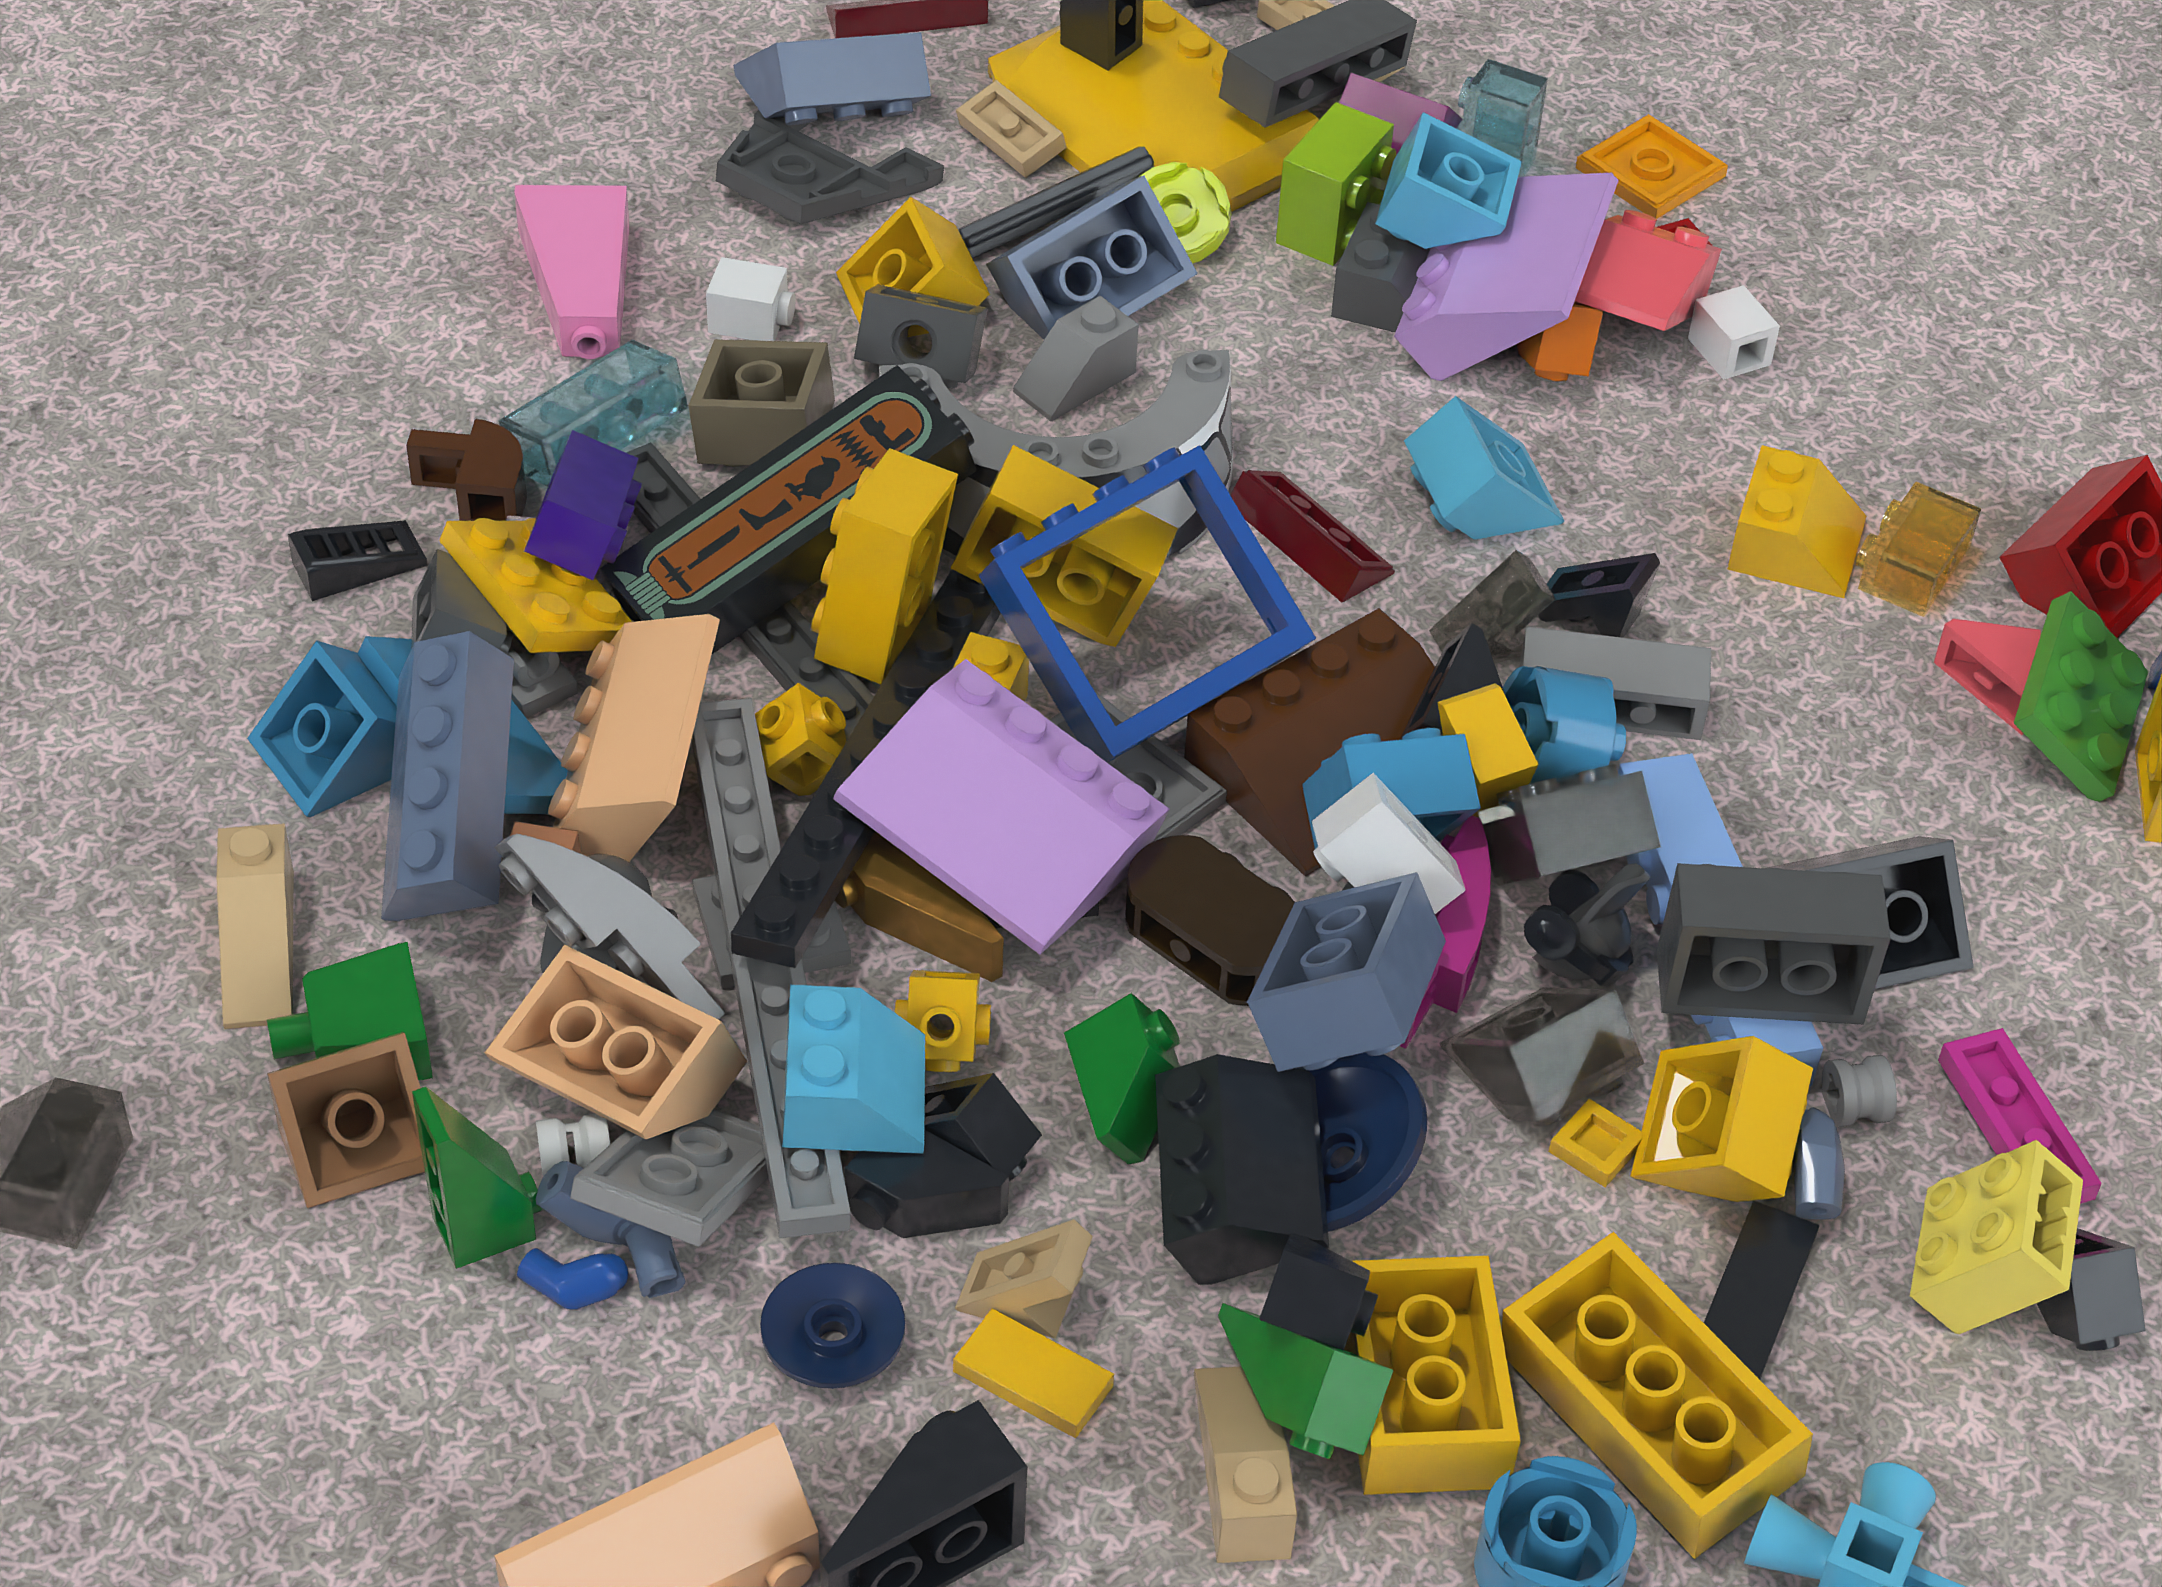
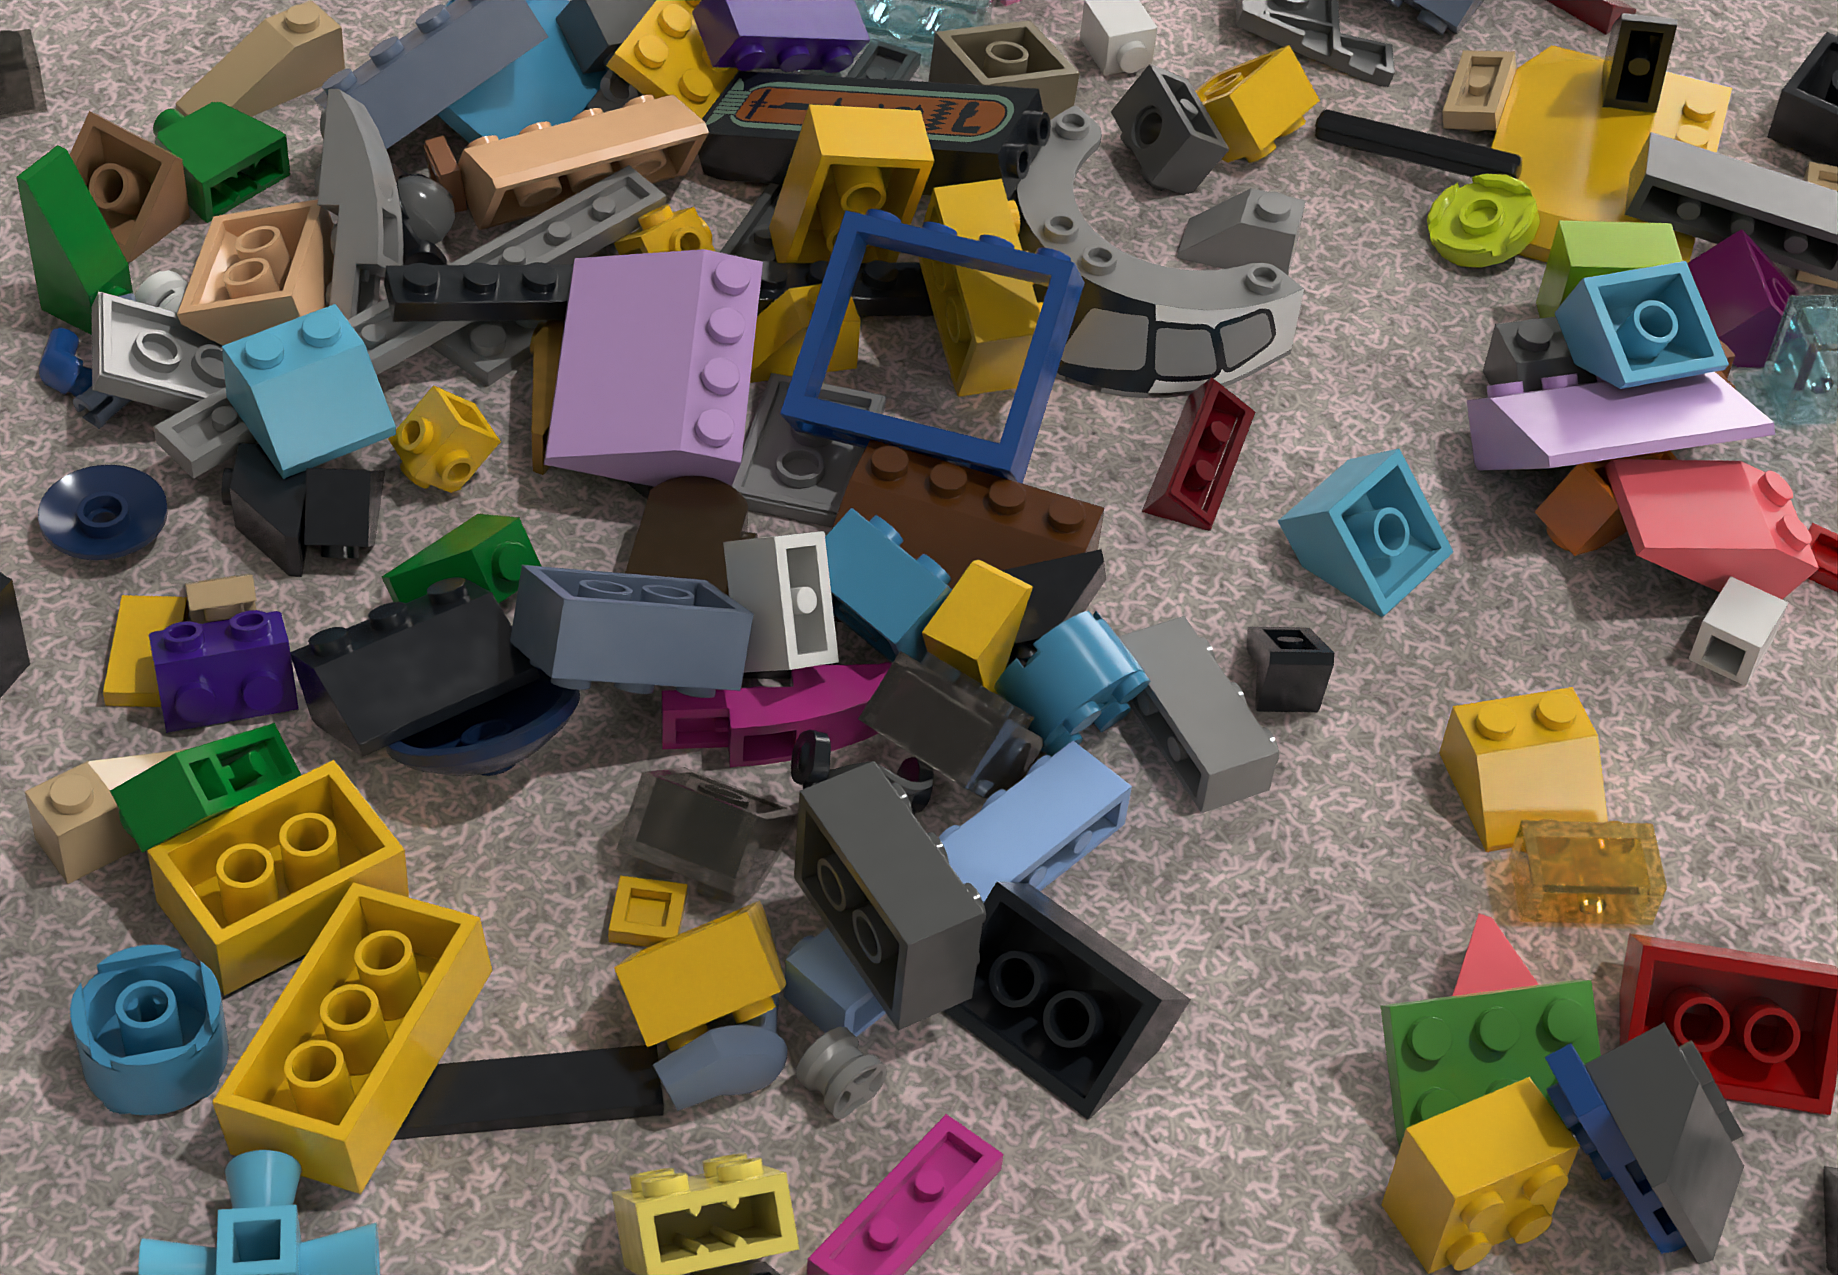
camera: 55 degrees right, 0 degrees up
(1106, 248) = (1362, 189): sand blue slope -> none
(1126, 1310) = (223, 670): none -> dark purple bracket
(1319, 1294) = (261, 733): black slope -> none
(1499, 606) = (1201, 595): clear smoke slope -> none

